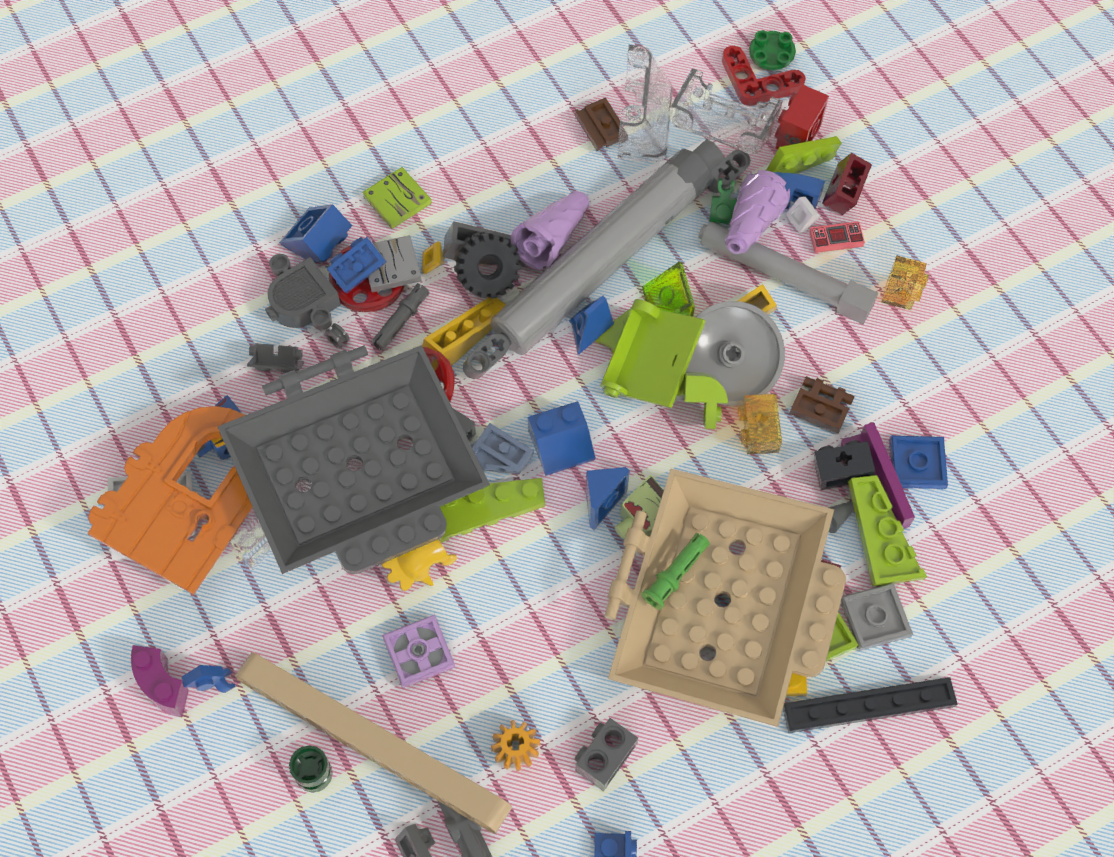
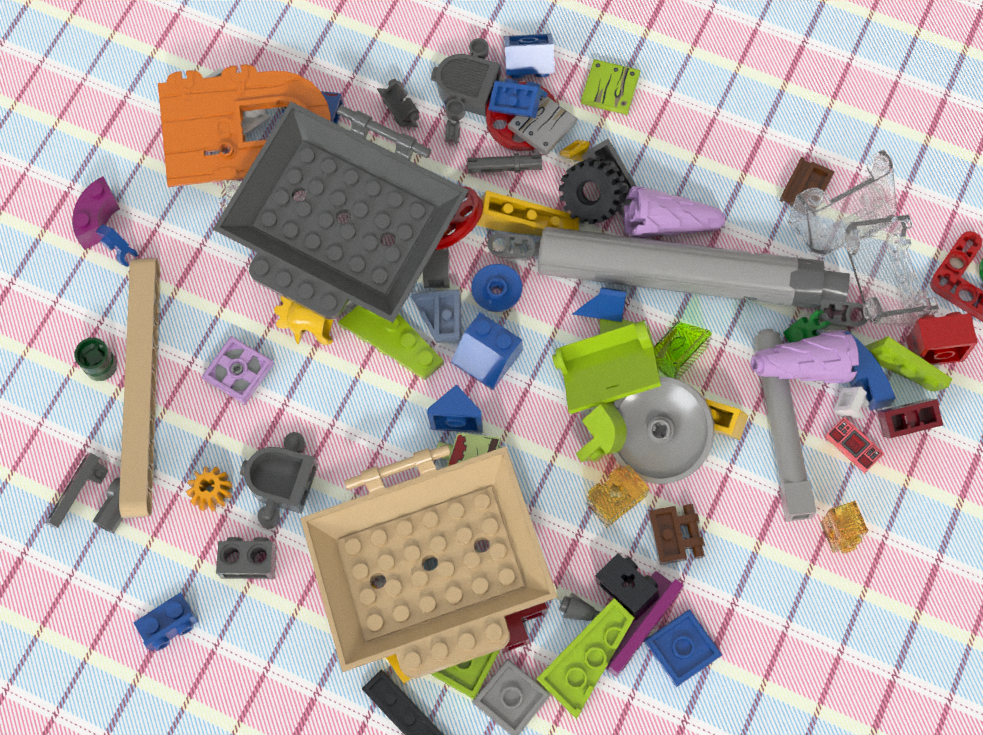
camera: 60 degrees right, 5 degrees up
(510, 384) = (496, 277): none -> blue dish
(550, 678) = (280, 478): none -> dark grey piece
(668, 580) = (408, 508): bright green pin -> none

